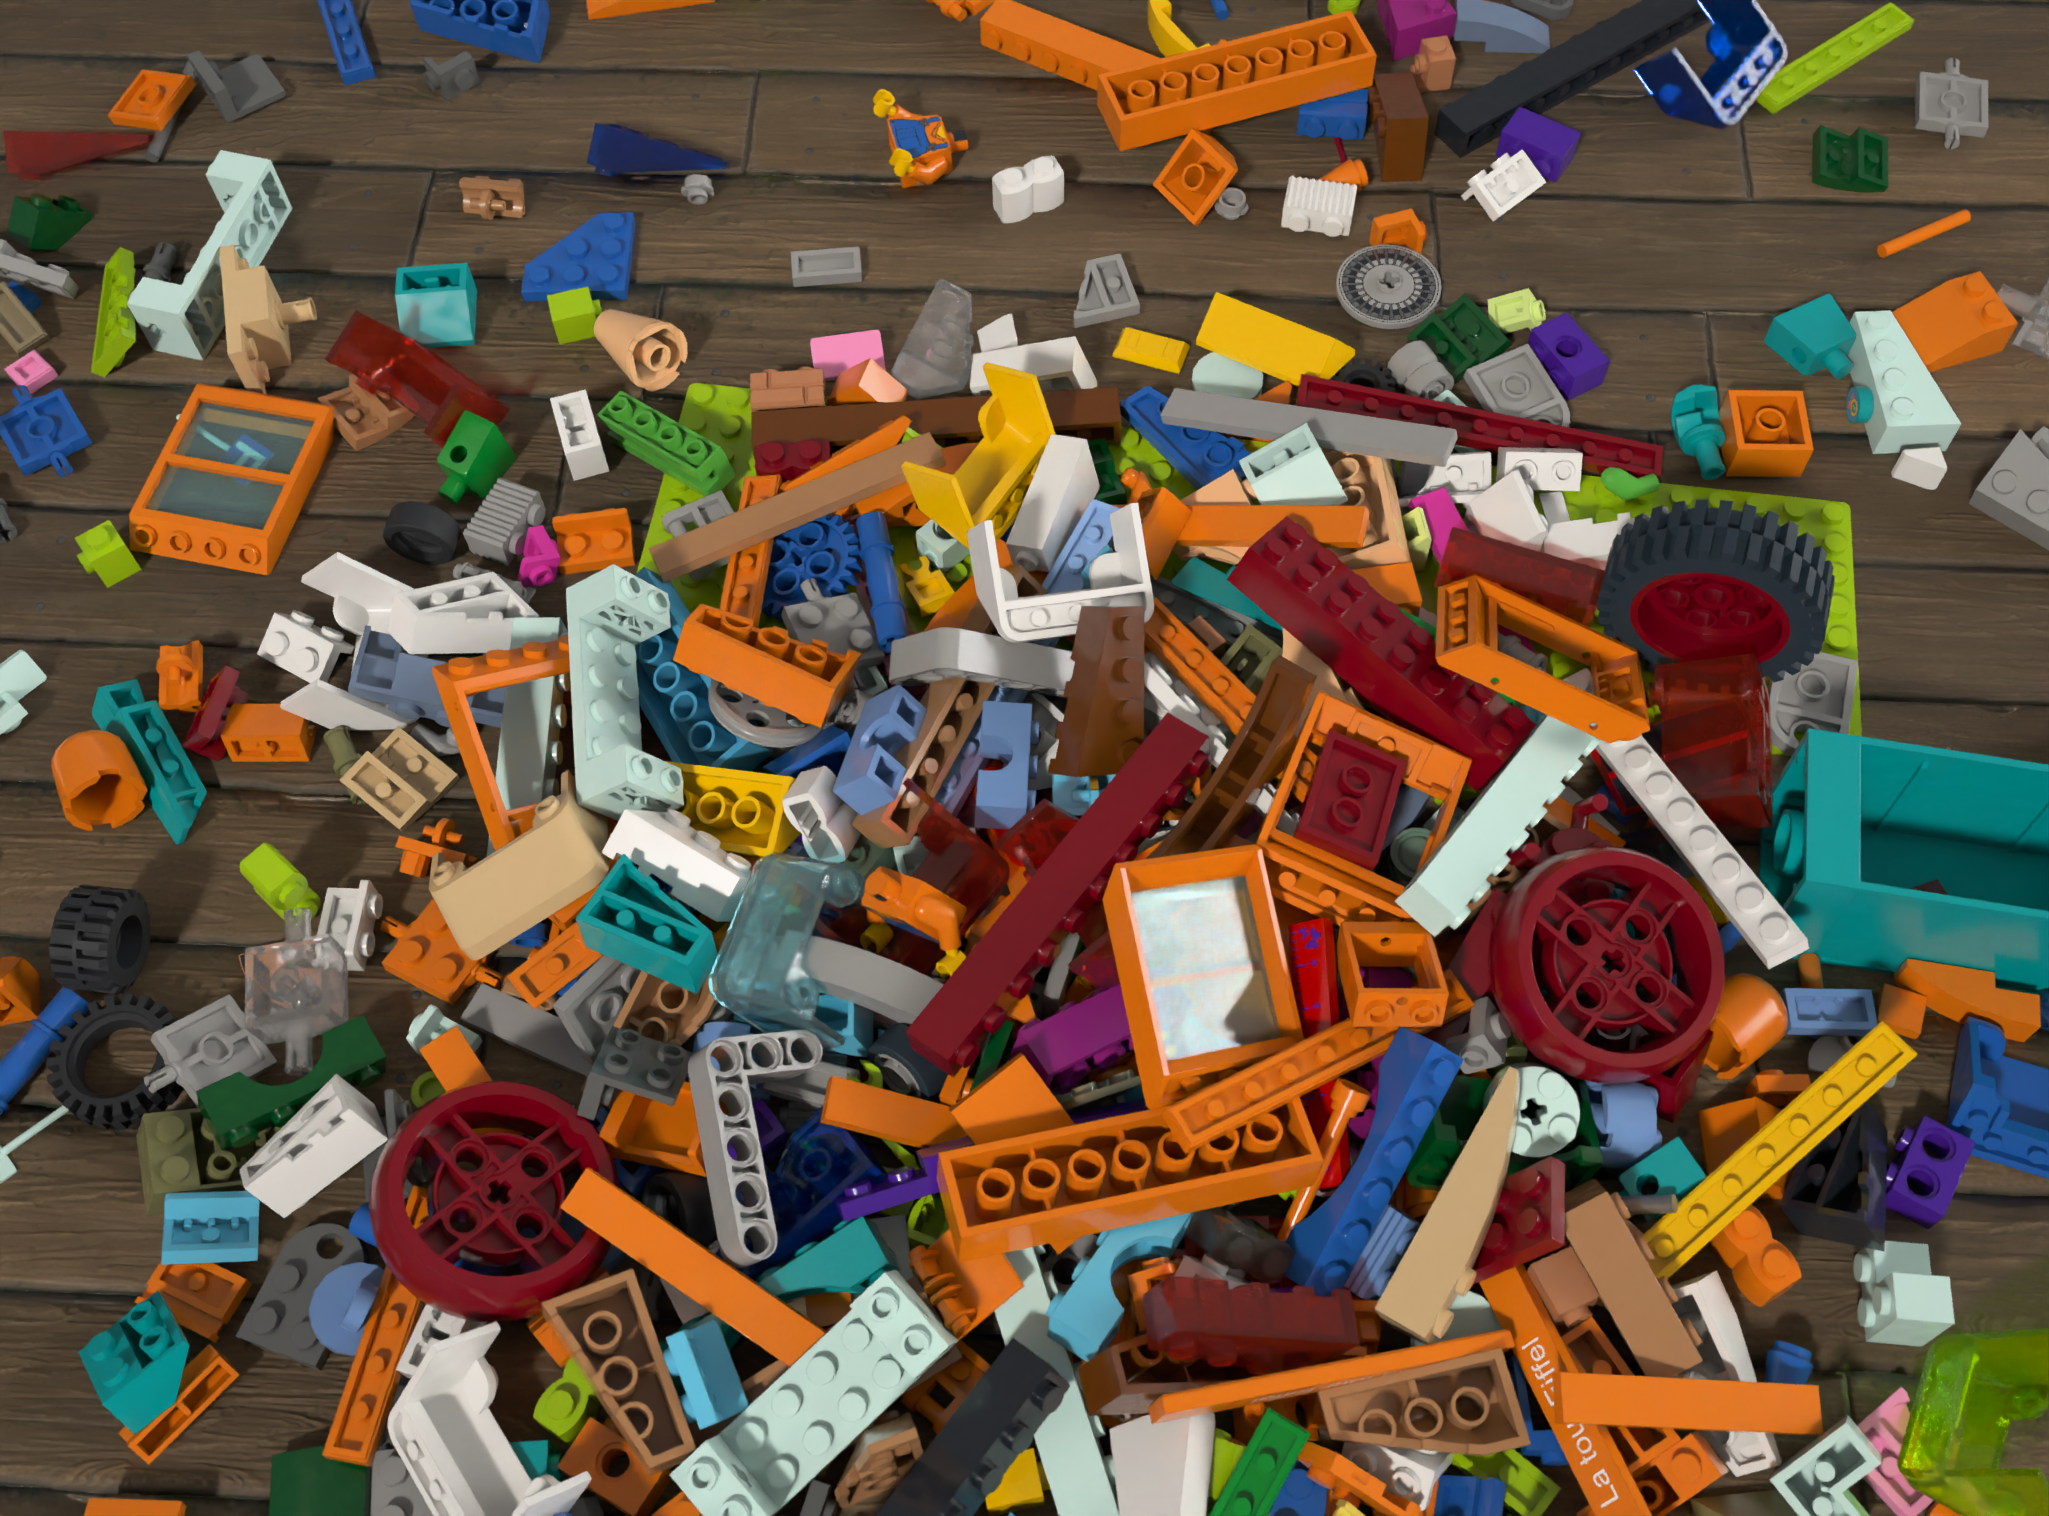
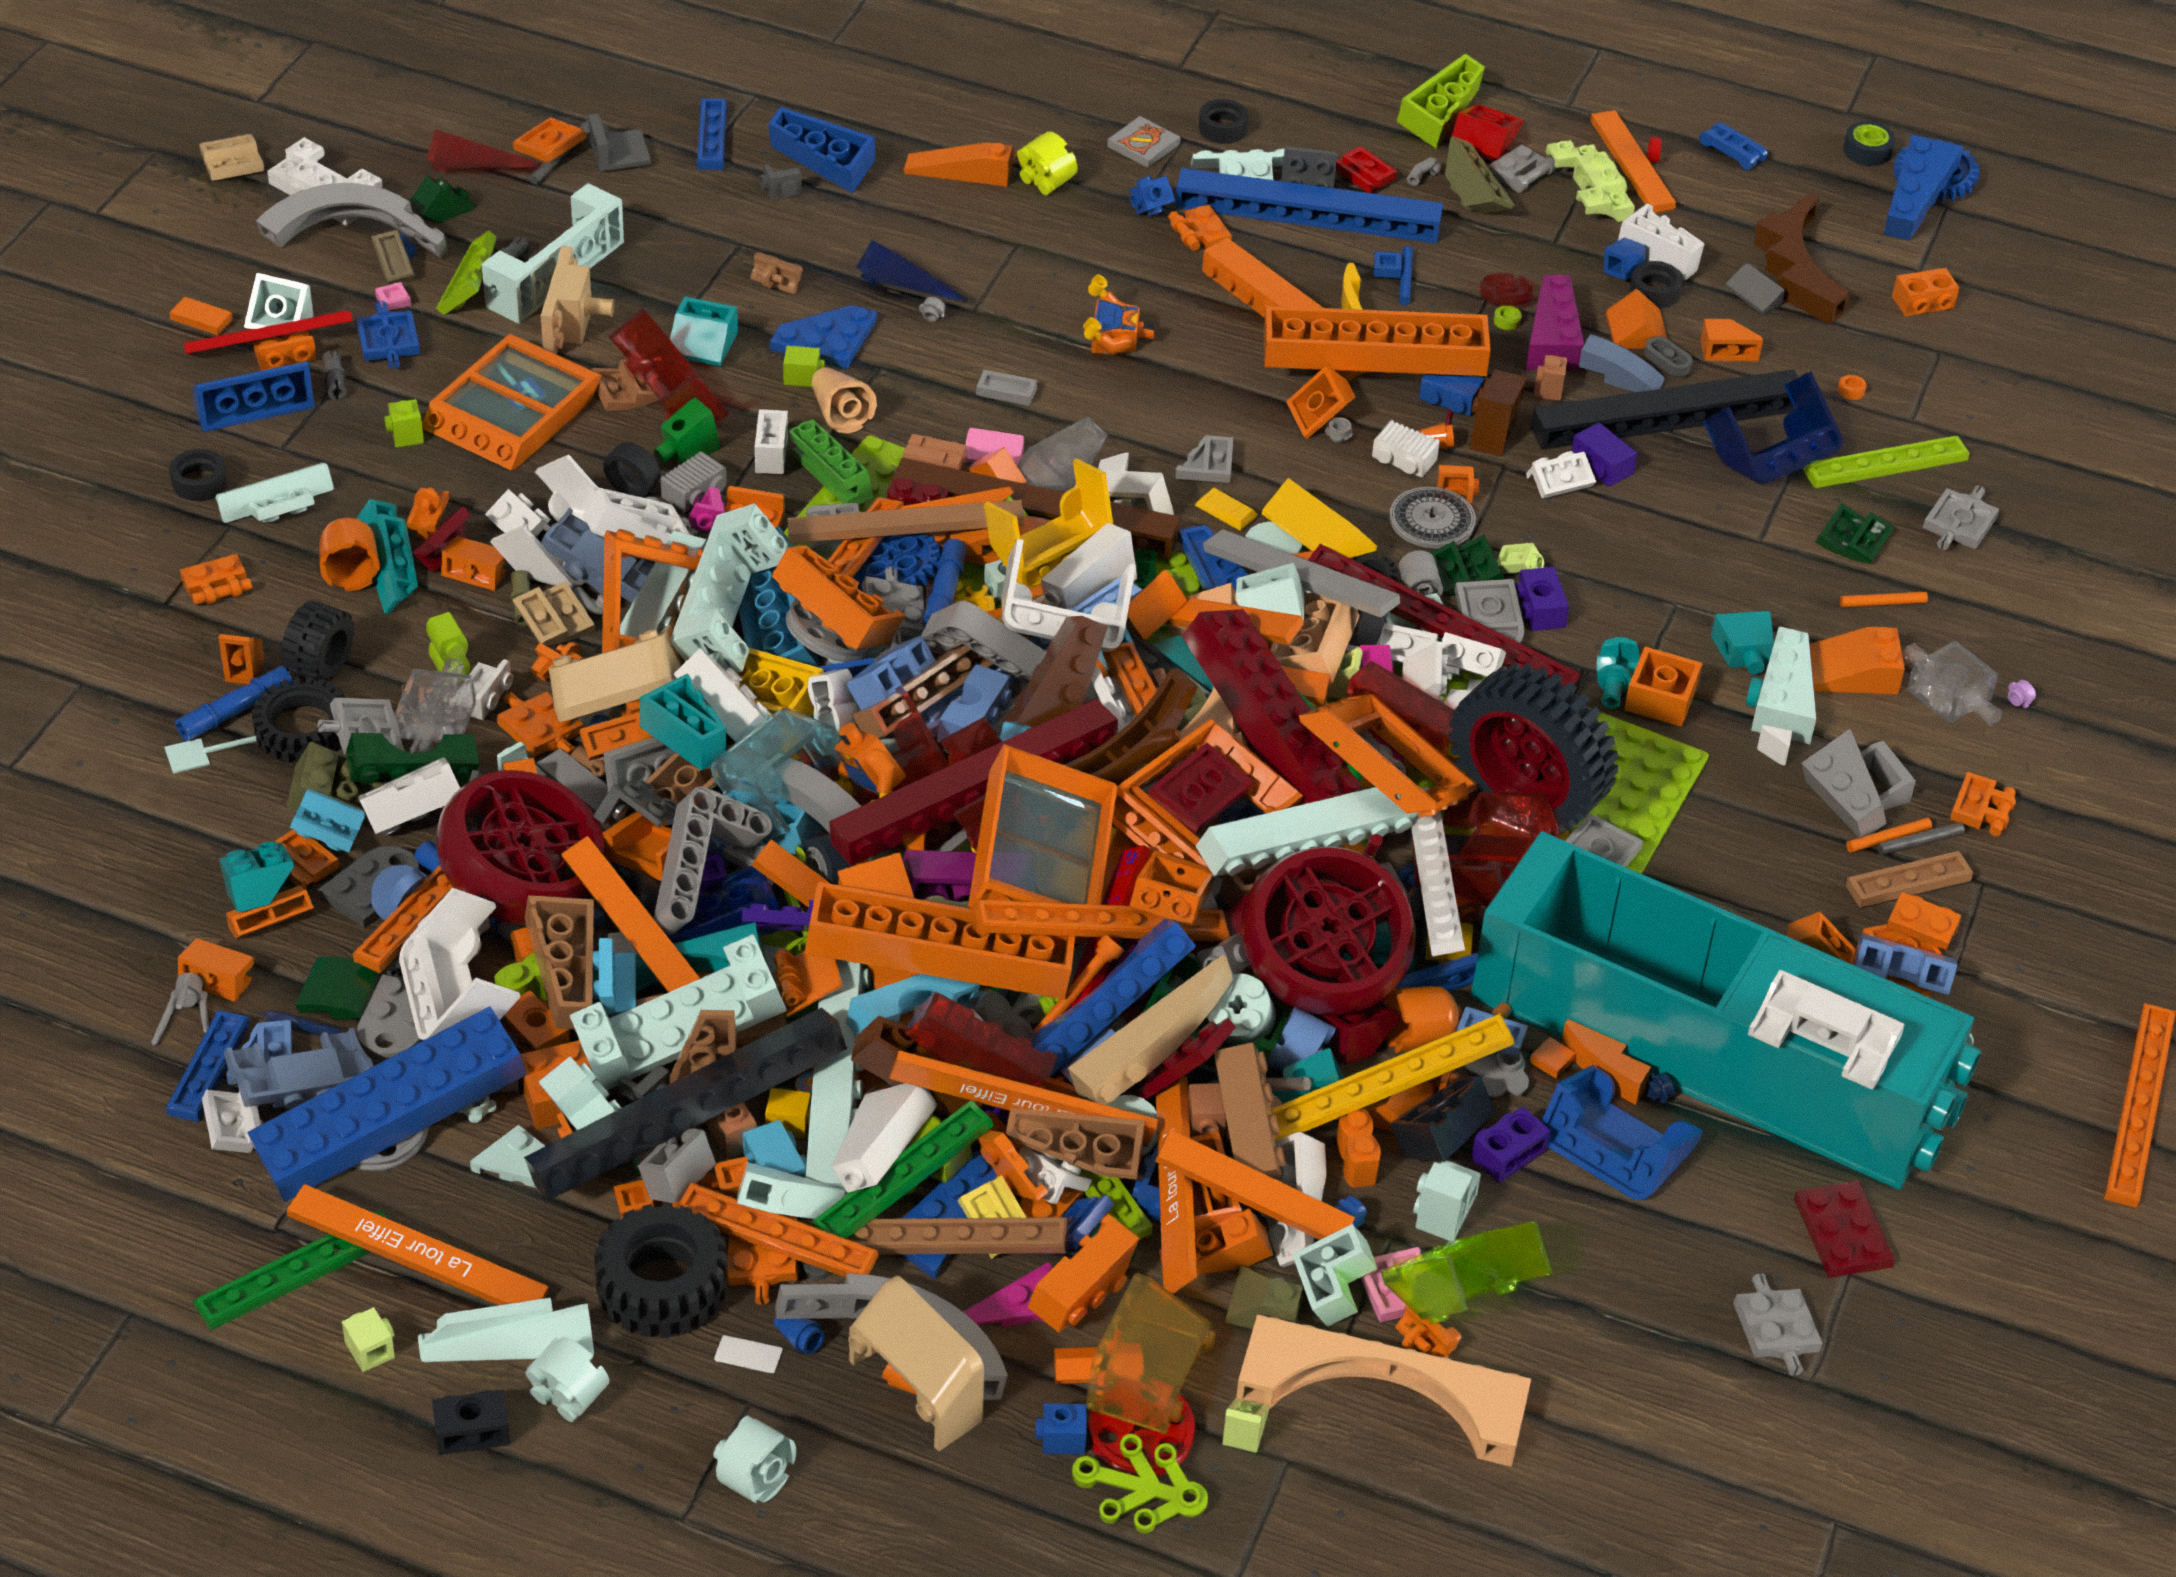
camera: 15 degrees right, 15 degrees down
(1028, 189) = (1184, 376): white brick -> none

